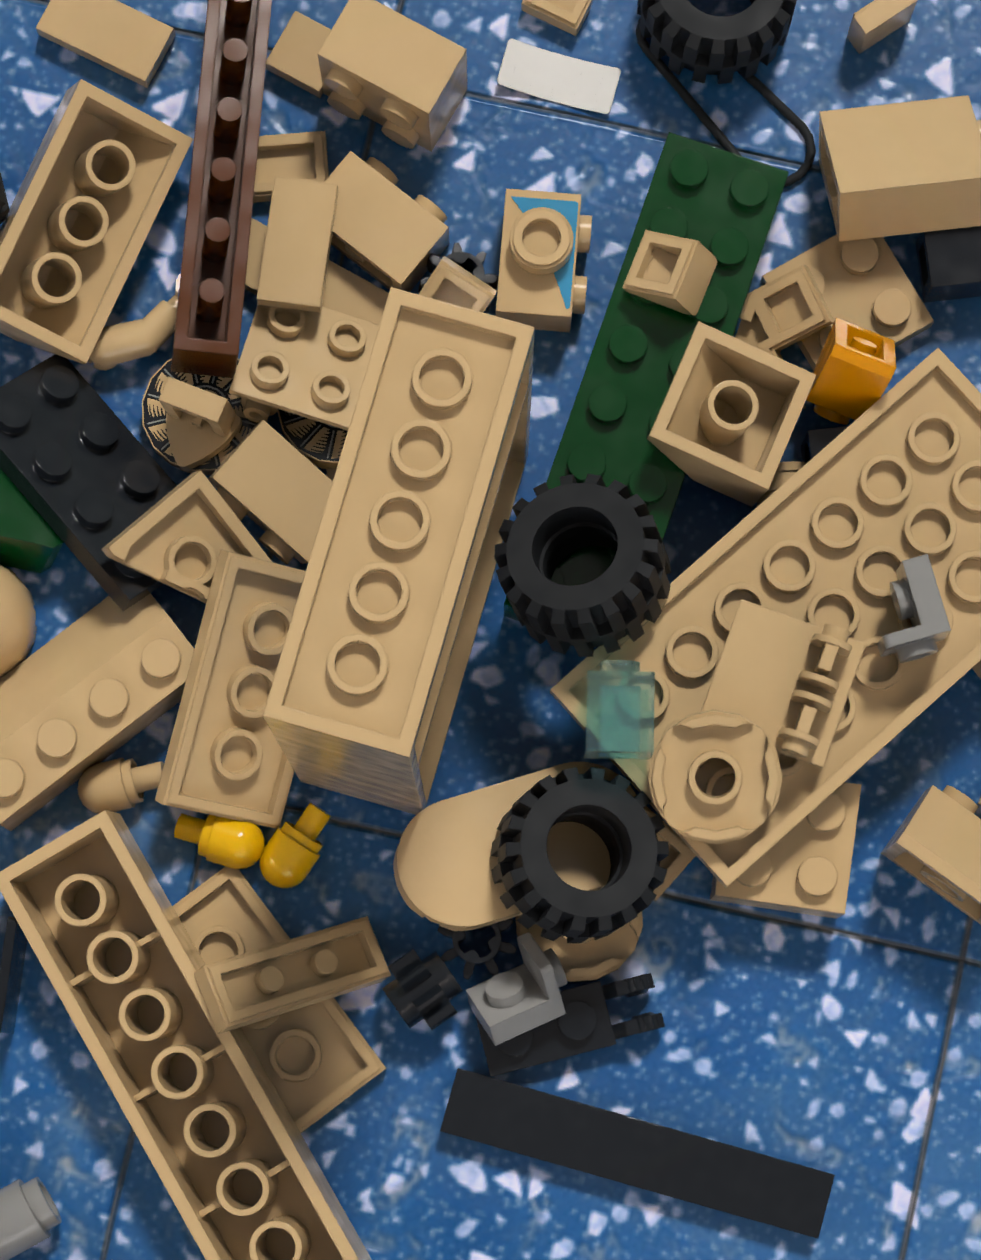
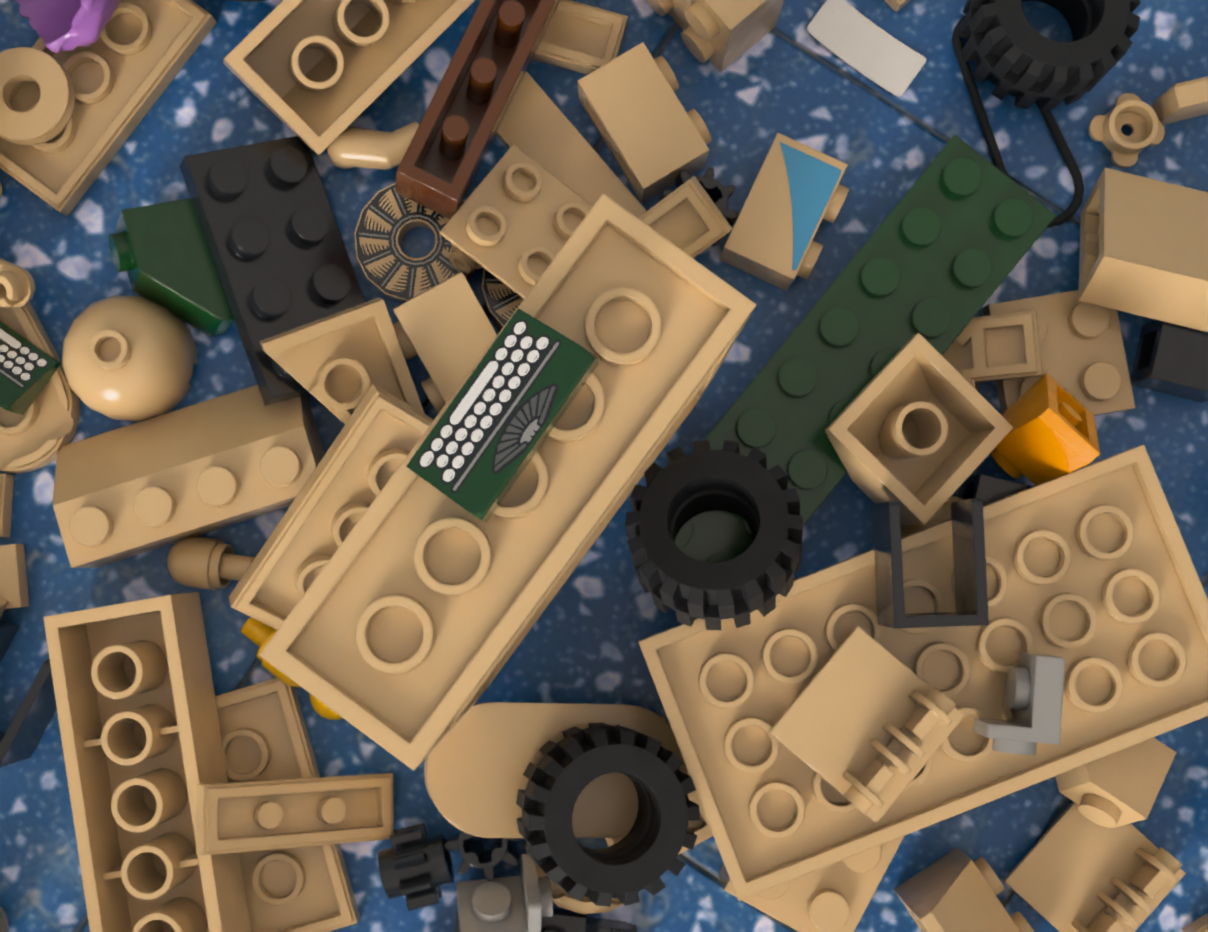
camera: 20 degrees right, 5 degrees up
(196, 423) = (401, 251): tan tile -> none
(297, 244) = (558, 113): tan tile -> none
(378, 472) = (503, 414): none -> slope
(541, 241) = (793, 195): tan tile -> none
(619, 711) = (696, 697): clear light blue brick -> none
(671, 271) = (907, 272): tan slope -> none
(708, 816) = (758, 834): tan tile -> none
(817, 509) = (968, 568): none -> black piece
(825, 51) = (1141, 119): none -> tan plate

